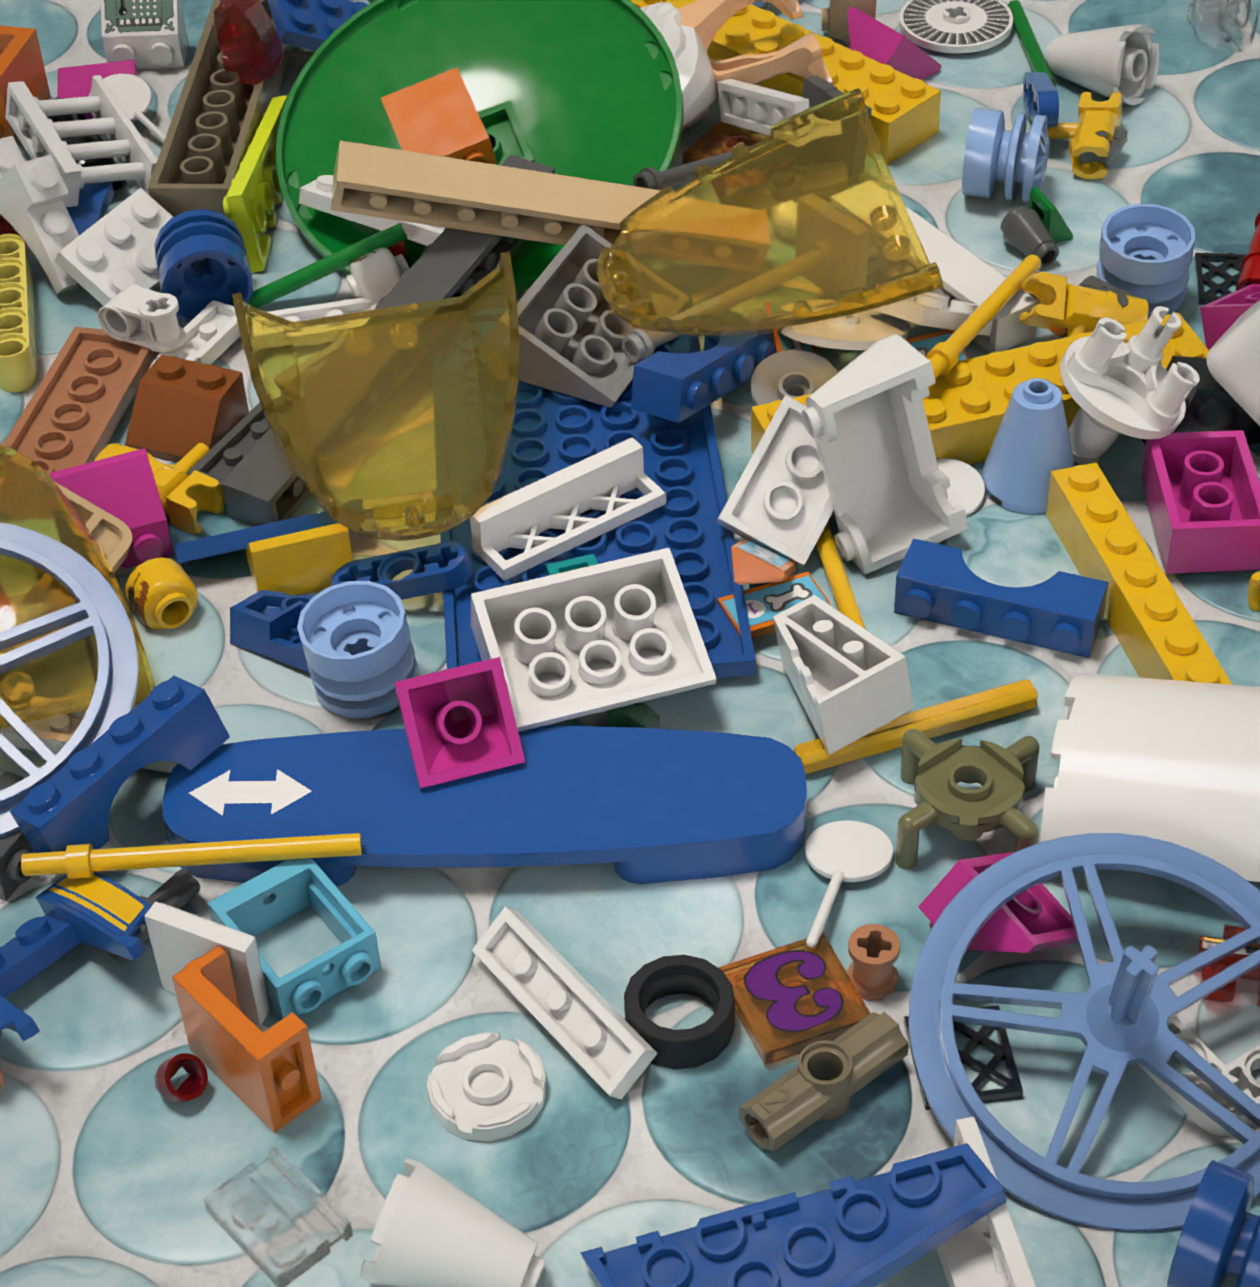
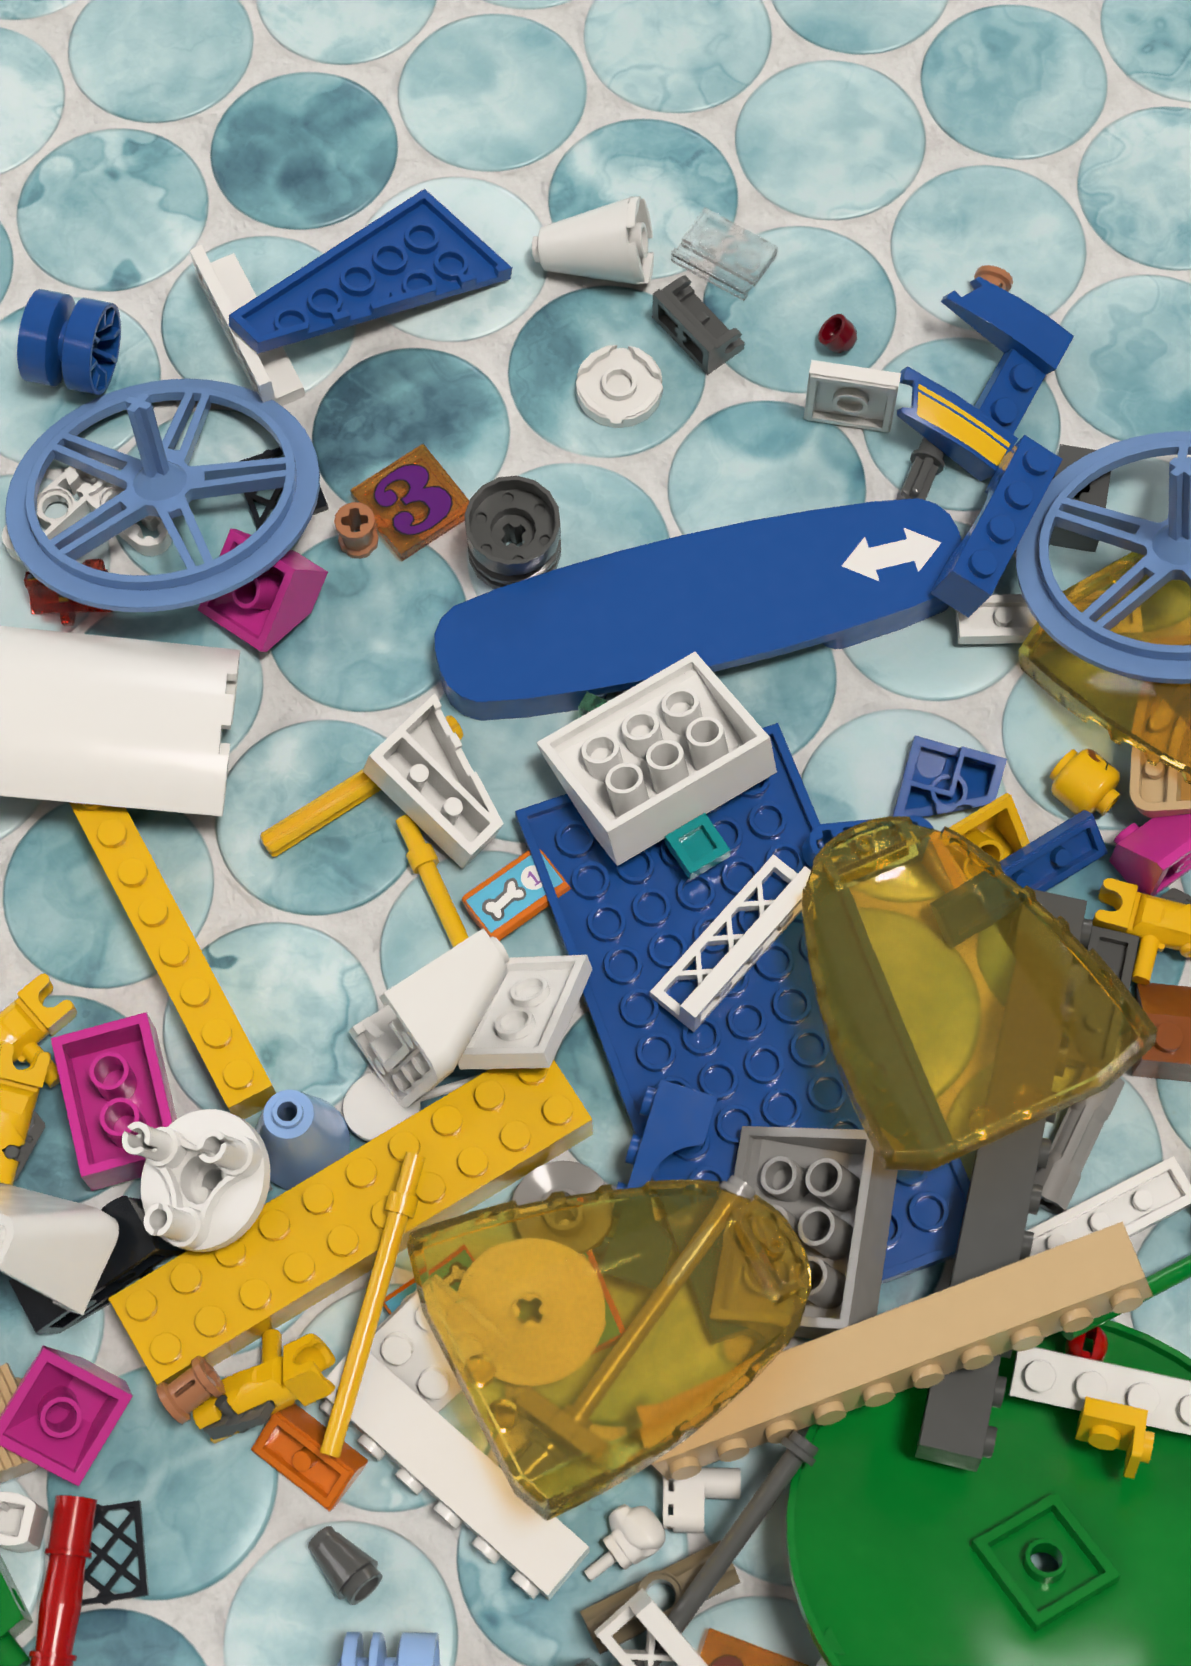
camera: 165 degrees right, 25 degrees up
(83, 860) = (986, 447): yellow bar -> none
(265, 1070) = (791, 331): orange panel -> none
(294, 888) = (794, 407): medium azure window -> none
(354, 1128) = (695, 326): none -> dark grey hinge
(357, 647) = (872, 703): light blue wheel -> none
(439, 119) = (1097, 1510): orange panel -> none
(459, 722) = (739, 634): dark pink slope -> none
(564, 1003) = (583, 449): white plate -> none
(681, 890) = (515, 512): none -> dark grey wheel
(682, 976) = (488, 433): black tyre -> none
(758, 564) = (531, 911): orange slope -> none
(804, 1097) = (359, 444): dark tan piece -> none
(845, 854) = (397, 644): white piece -> none
(966, 812) = (307, 714): olive plate -> none
(1049, 215) = (324, 1615): green slope -> none
(1053, 615) = (249, 933): blue arch -> none
(1138, 302) = (190, 1389): none -> nougat bush
(1147, 253) = (184, 1471): light blue wheel -> none

